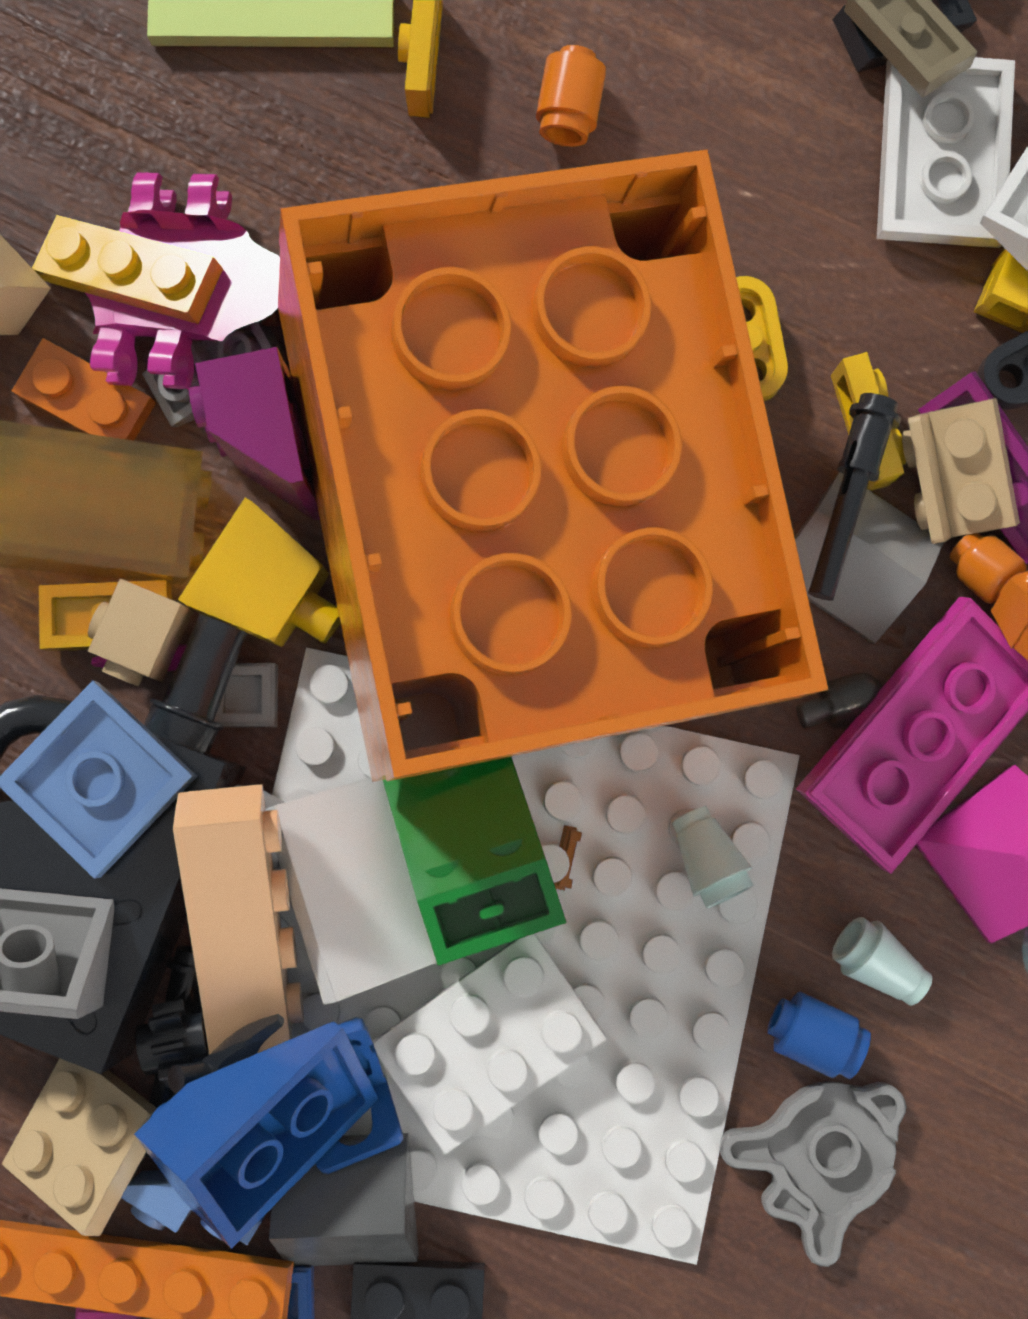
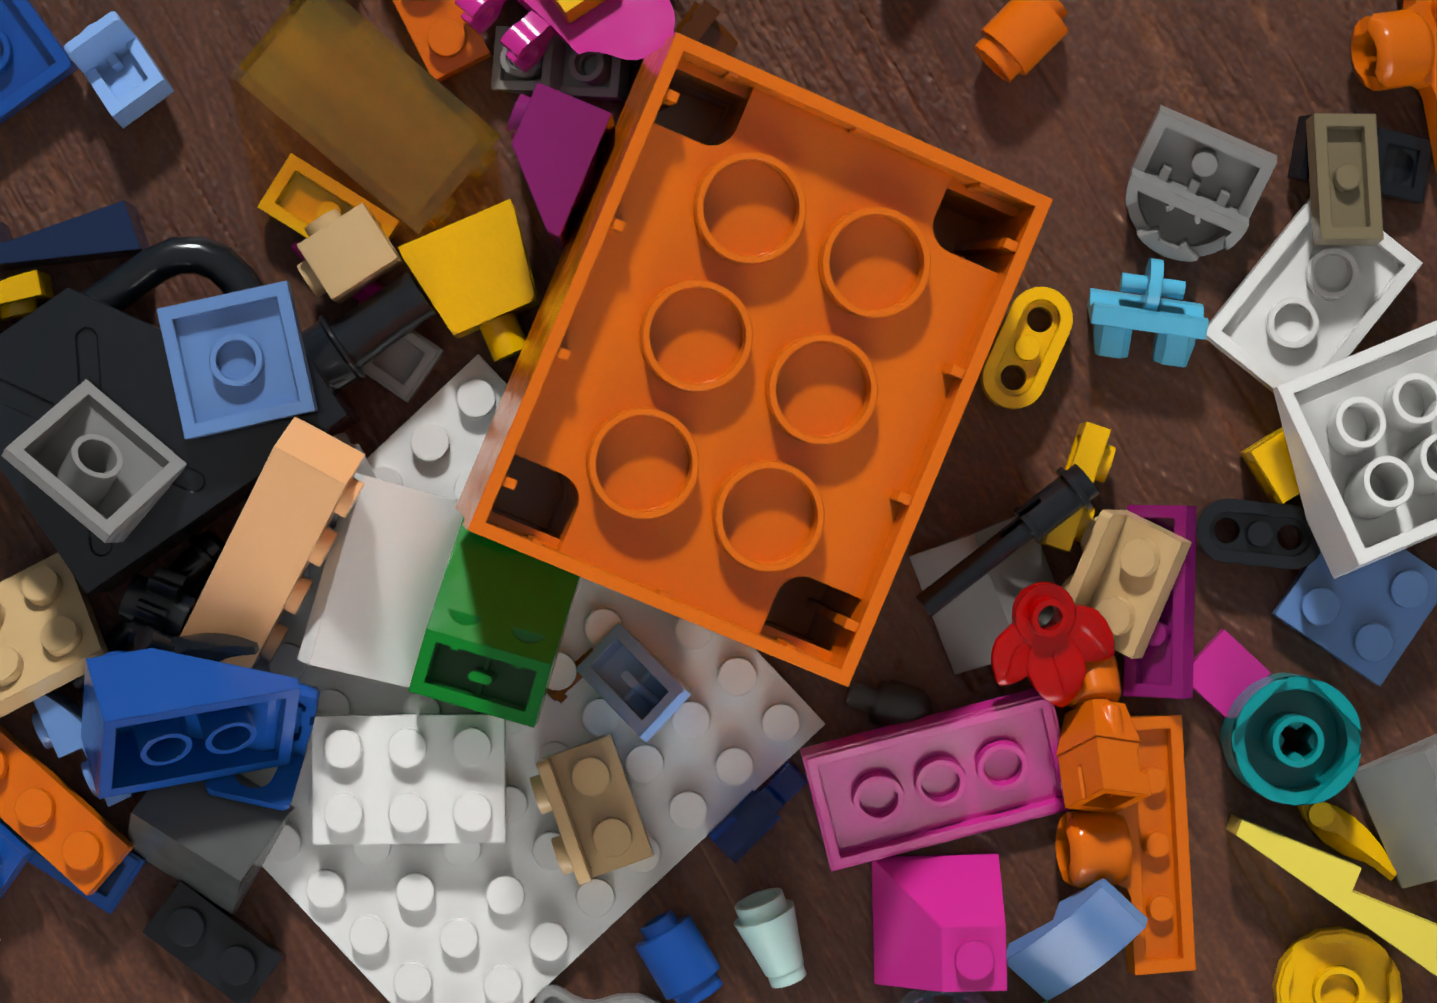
camera: 35 degrees right, 5 degrees up
(623, 827) = (634, 682): none -> light blue slope
(661, 959) = (592, 809): none -> tan bracket
(710, 858) = (689, 757): light aqua cone -> none
(791, 124) = (1194, 187): none -> light grey slope
(796, 867) = (756, 813): none -> clear blue bar
(853, 242) = (1173, 321): none -> medium azure hips
(949, 561) = (1050, 653): none -> red plate

